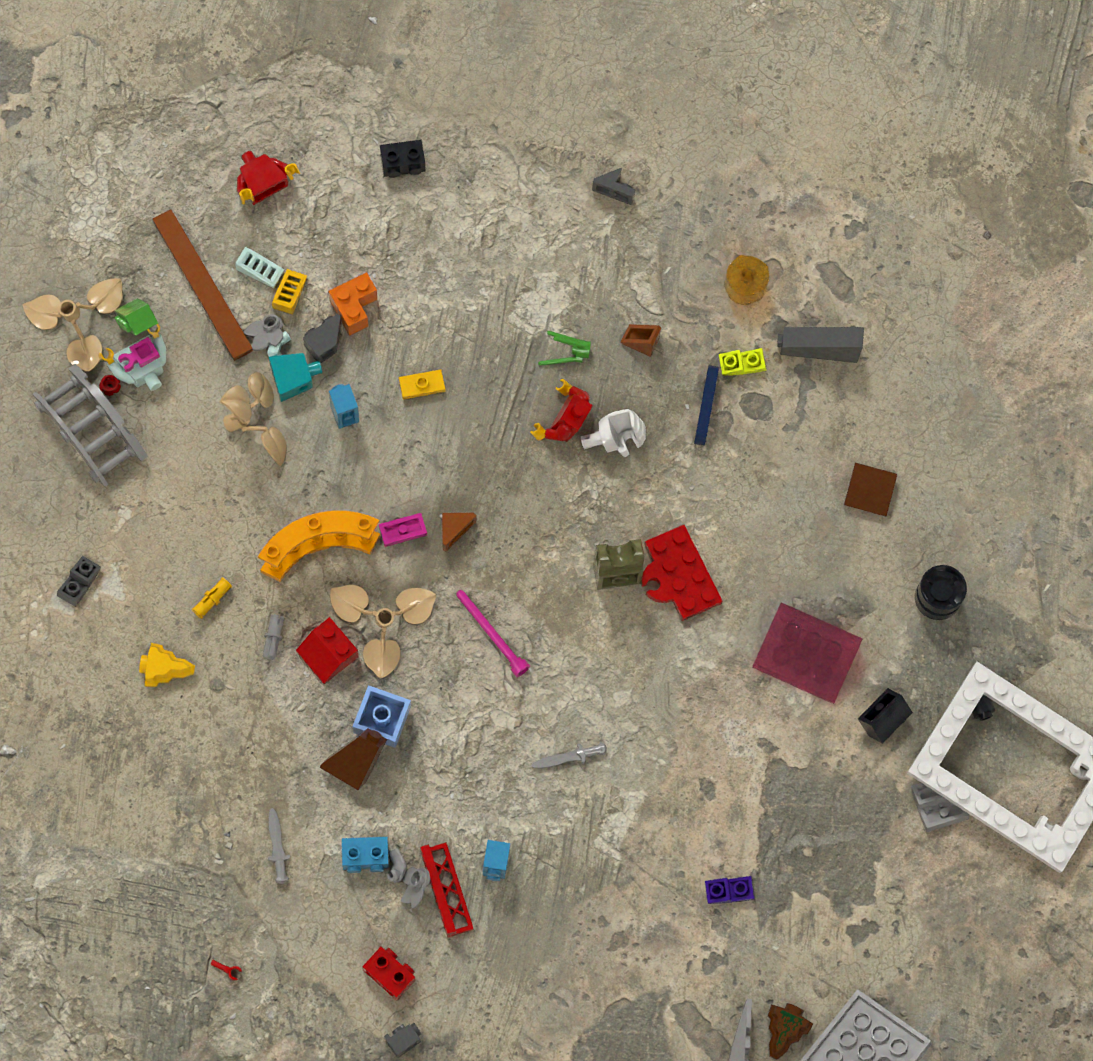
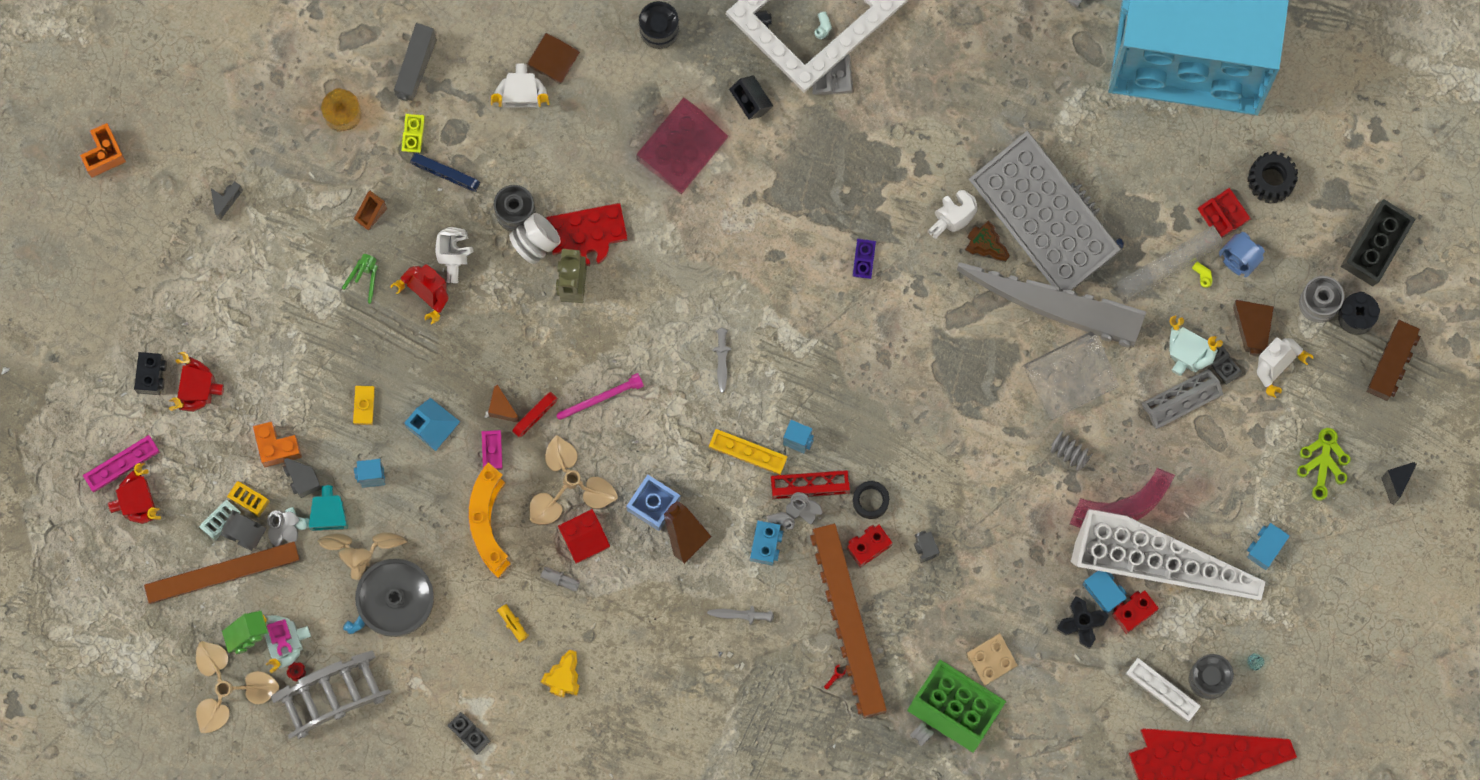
camera: 70 degrees left, 5 degrees up
(175, 436) = (351, 627): none -> dark azure arm
(211, 465) = (394, 597): none -> dark grey dish
(250, 291) = (243, 529): none -> dark grey brick
(294, 969) = (849, 621): none -> dark orange brick
(297, 153) = (121, 463): none -> dark pink plate
(400, 206) = (195, 385): none -> red torso
(417, 457) = (431, 423): none -> dark azure slope
(444, 945) = (871, 485): none -> black tyre
(454, 565) = (534, 414): none -> red beam
(467, 810) = (748, 452): none -> yellow plate
(633, 56) = (105, 155): none -> orange brick
(653, 514) = (534, 238): none -> white wheel
(683, 486) = (513, 206): none -> dark grey wheel
(805, 983) = (954, 216): none -> white piece
(822, 461) = (520, 90): none -> white torso
(993, 781) = (824, 27): none -> light aqua arm

